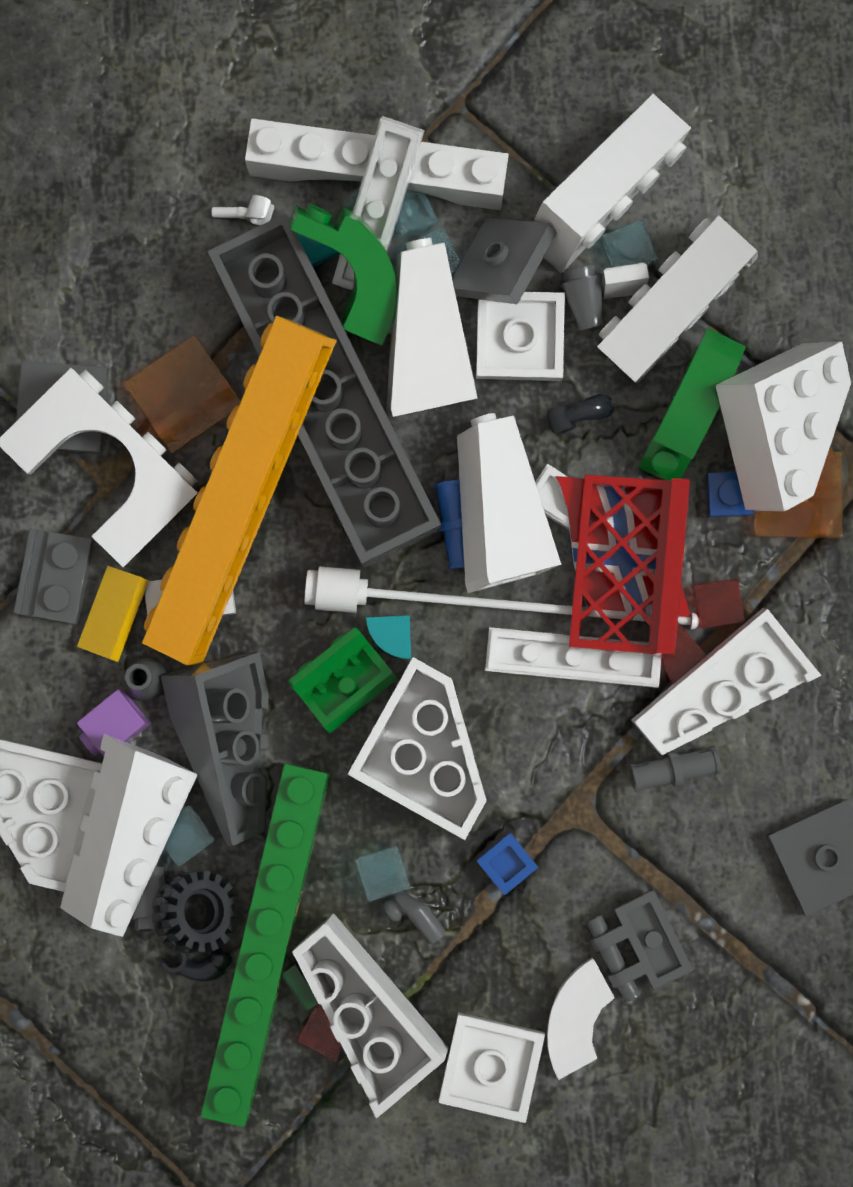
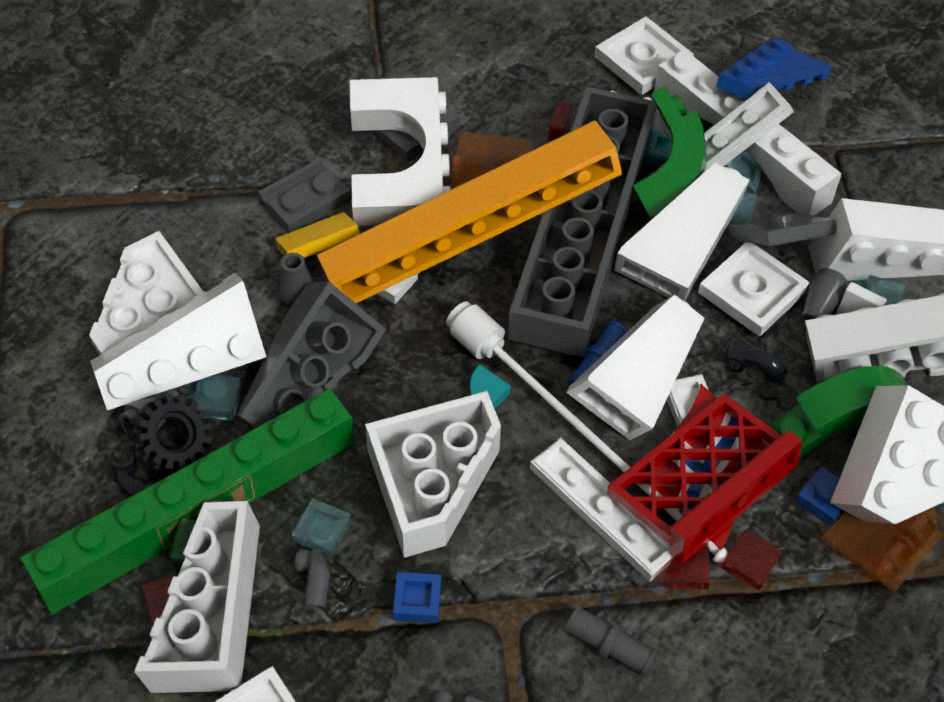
camera: 40 degrees right, 30 degrees down
(115, 717) = (259, 286): medium lavender brick -> none
(205, 140) = (637, 53): none -> white plate
(208, 302) = (560, 121): none -> clear red tile
(342, 679) = (421, 379): green bracket -> none
(346, 69) = (771, 63): none -> blue wing
(739, 674) = (715, 616): white wing -> none

